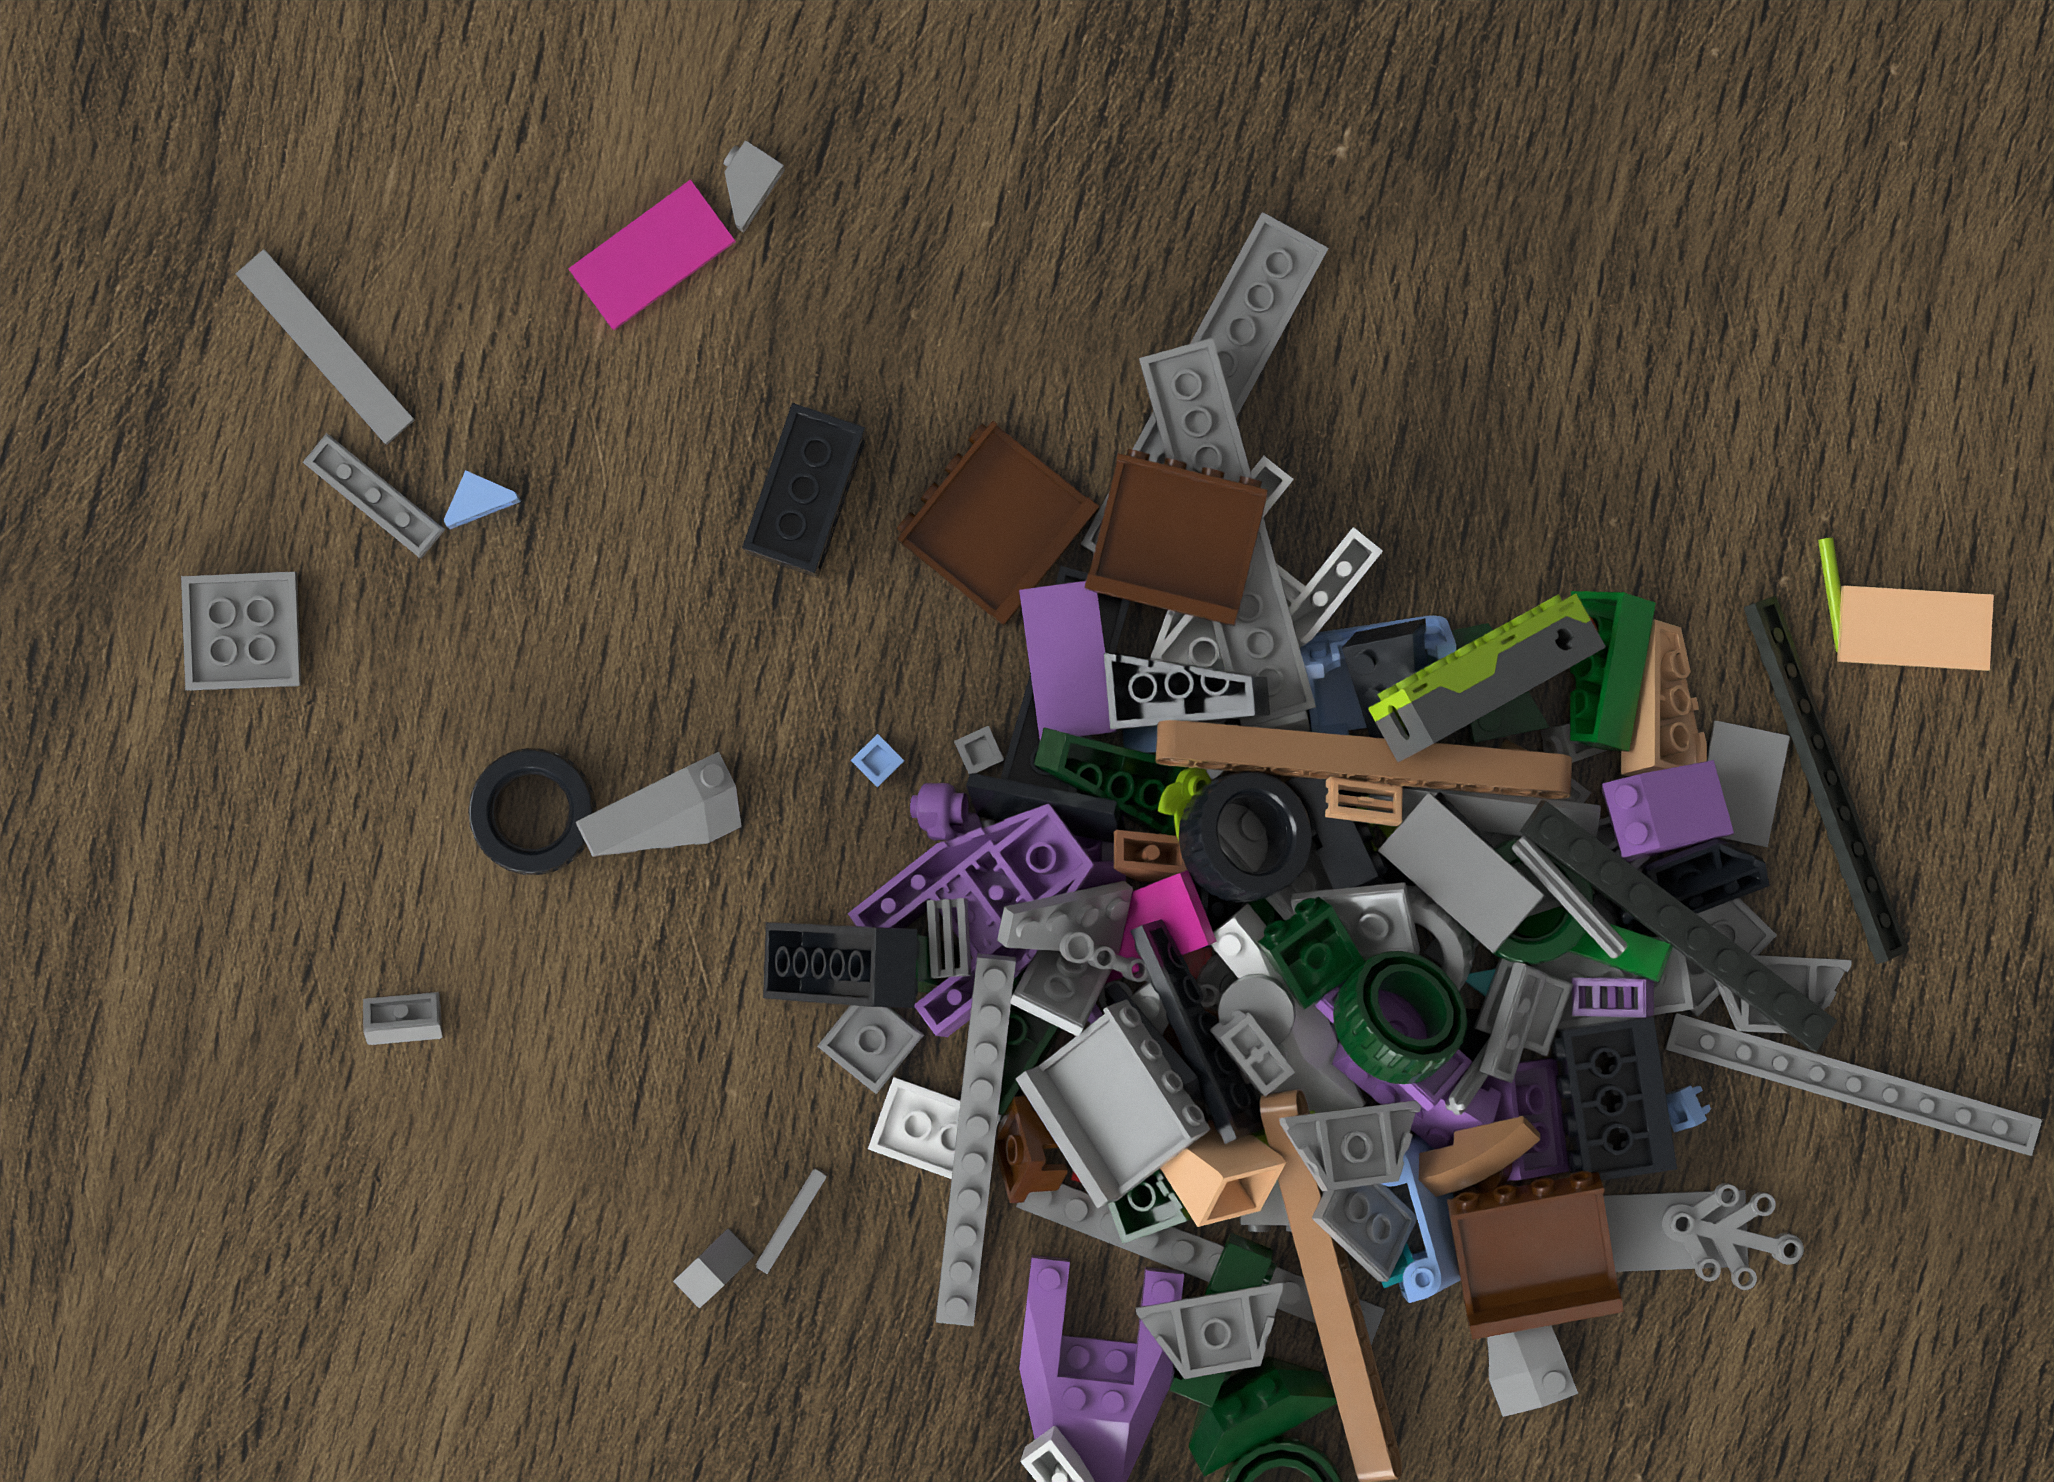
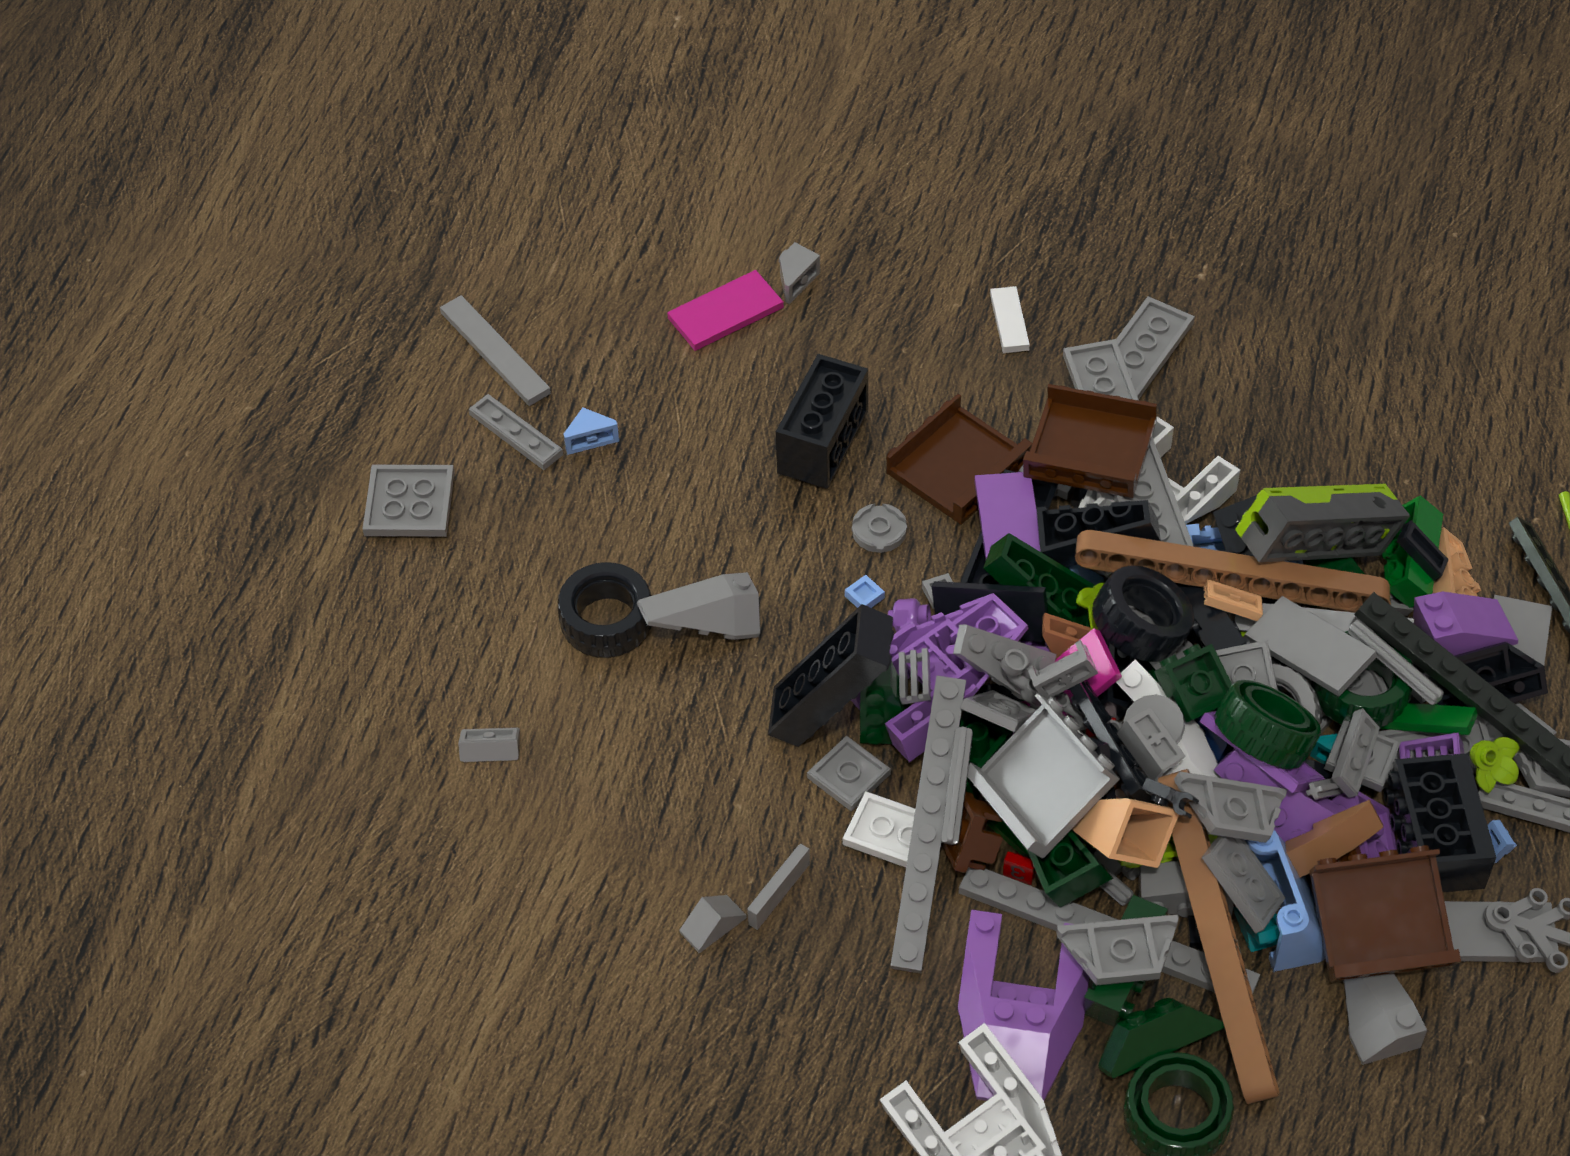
camera: 10 degrees right, 35 degrees down
(892, 641) = (879, 528): none -> light grey tile
(1008, 1101) = (956, 785): none -> light grey axle
(1063, 255) = (1009, 319): none -> white tile
(1138, 954) = (1064, 673): none -> light grey hinge
(1270, 1143) = (1164, 795): none -> black plate
(1620, 690) = (1422, 550): none -> black tile
(1690, 1010) = (1497, 765): none -> lime plate

